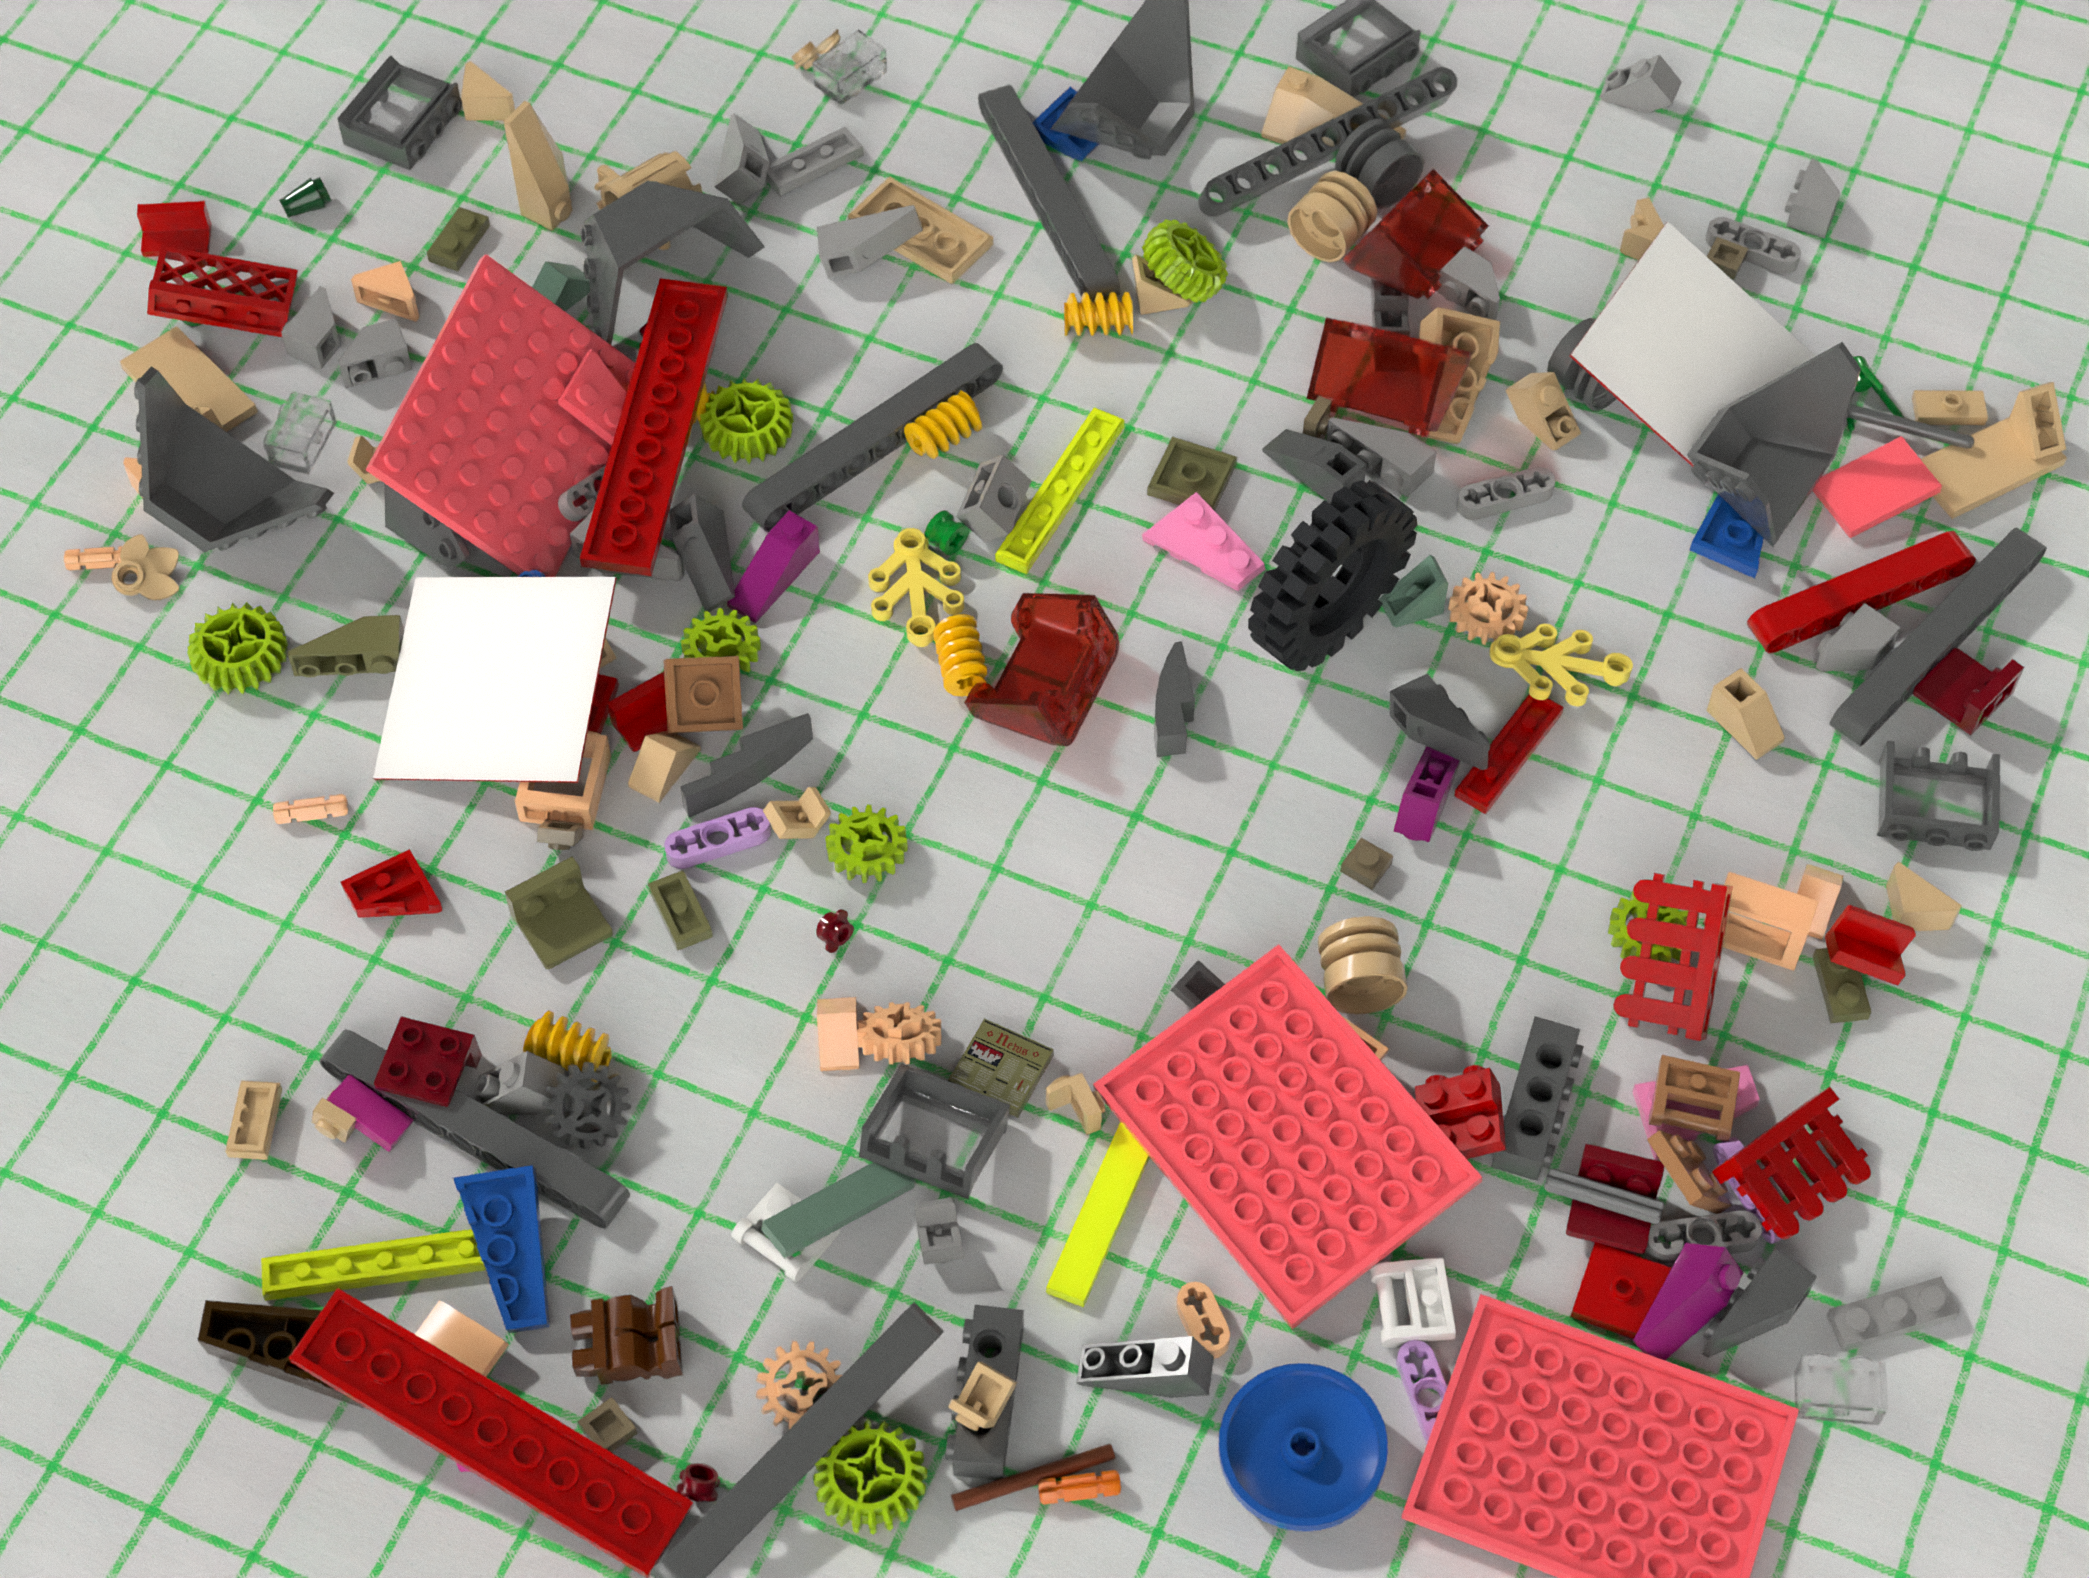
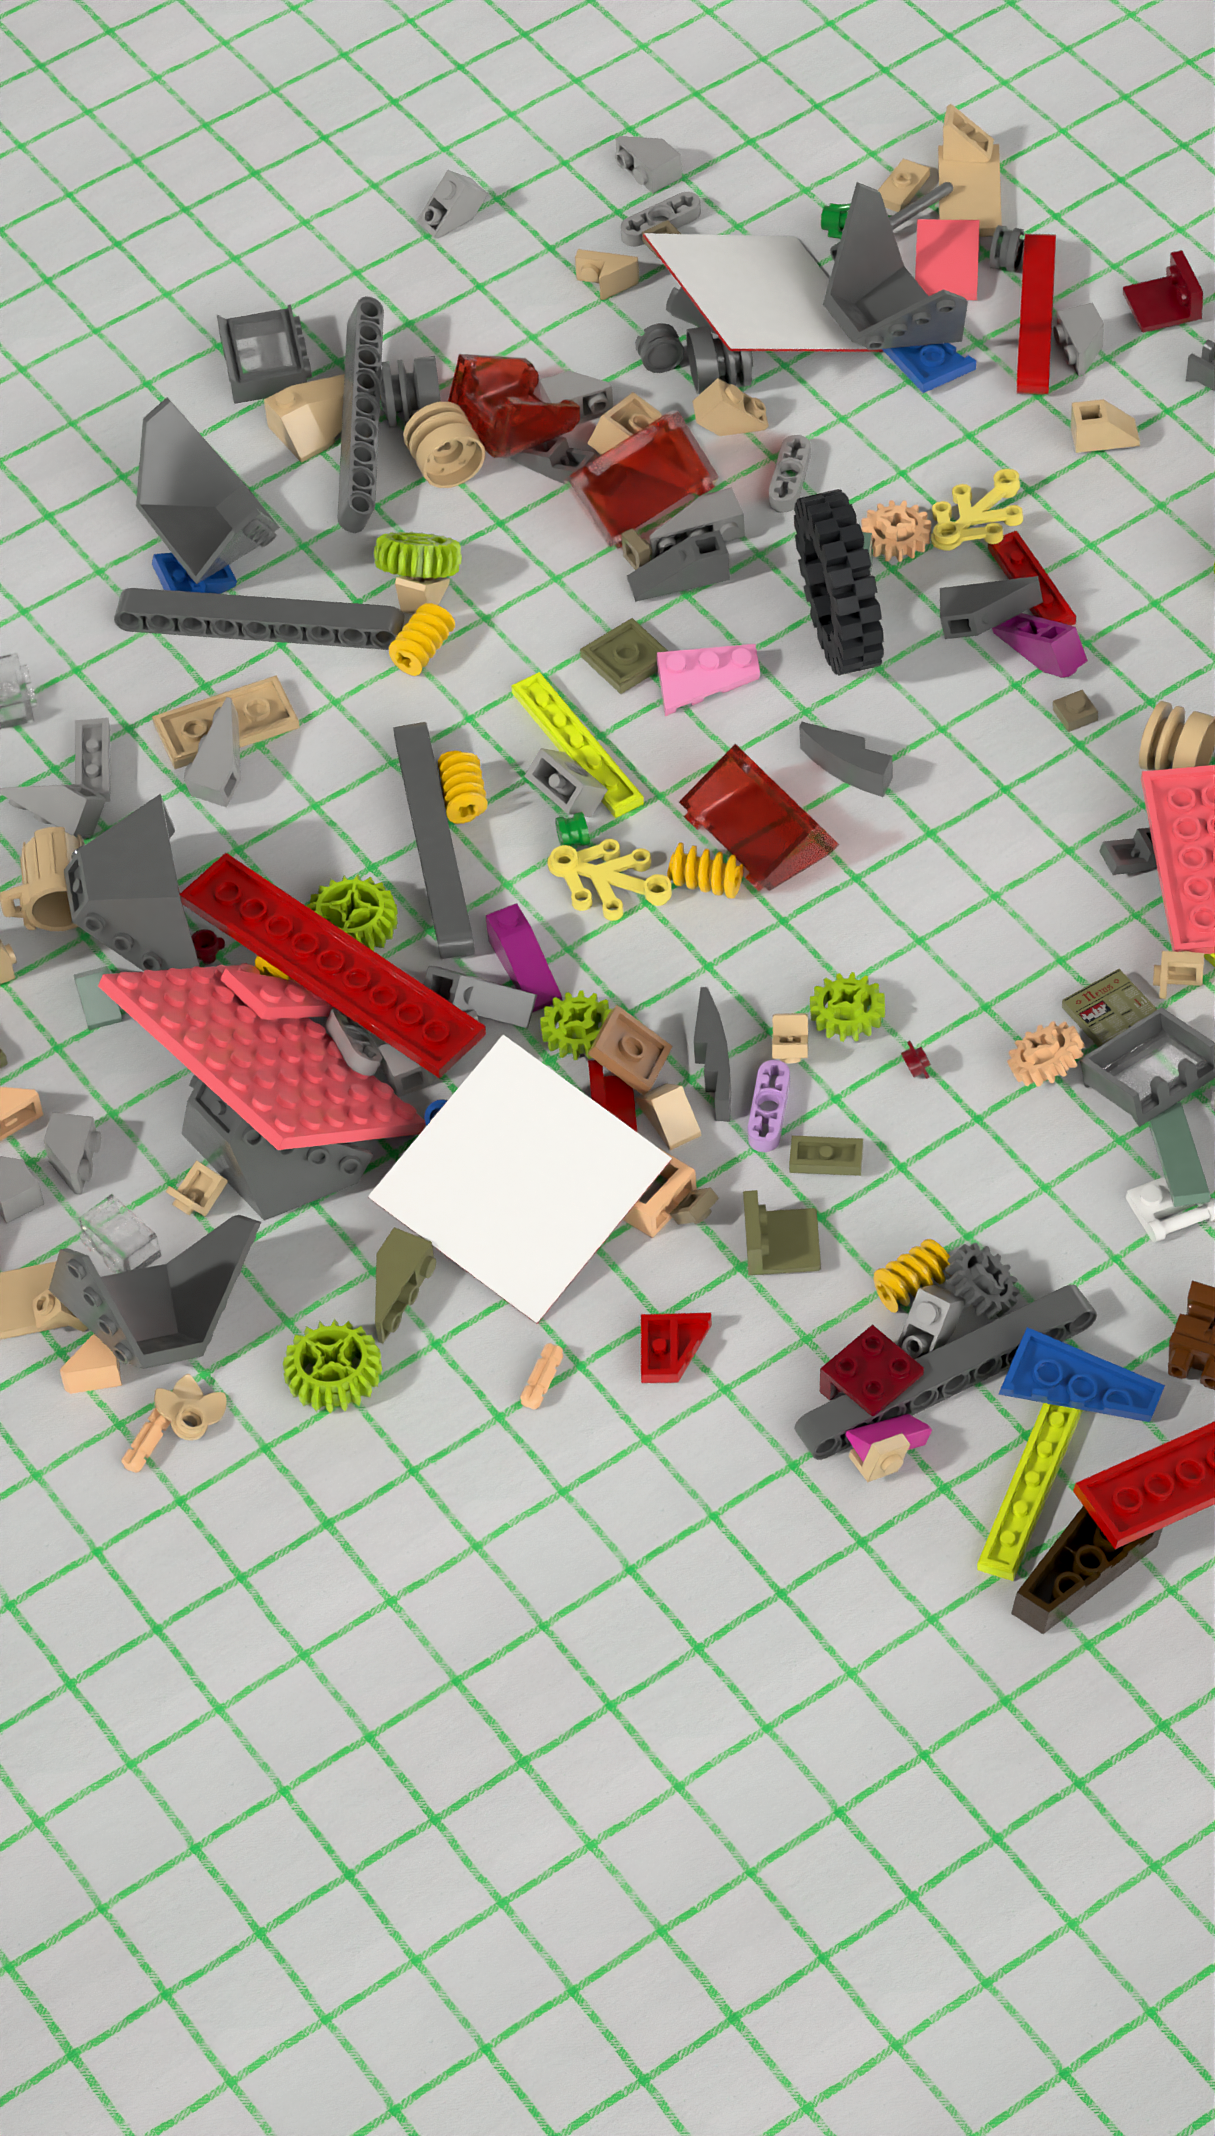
camera: 55 degrees left, 5 degrees down
(254, 1120) = (838, 1522): tan plate -> none
(462, 1338) = (1138, 1441): light nougat slope -> none
(837, 1034) = (1011, 1097): light nougat slope -> none
(1573, 310) = (660, 348): none -> dark grey wheel
(1922, 522) = (1006, 248): none -> dark grey wheel
(1937, 636) = (1107, 291): dark grey beam -> none

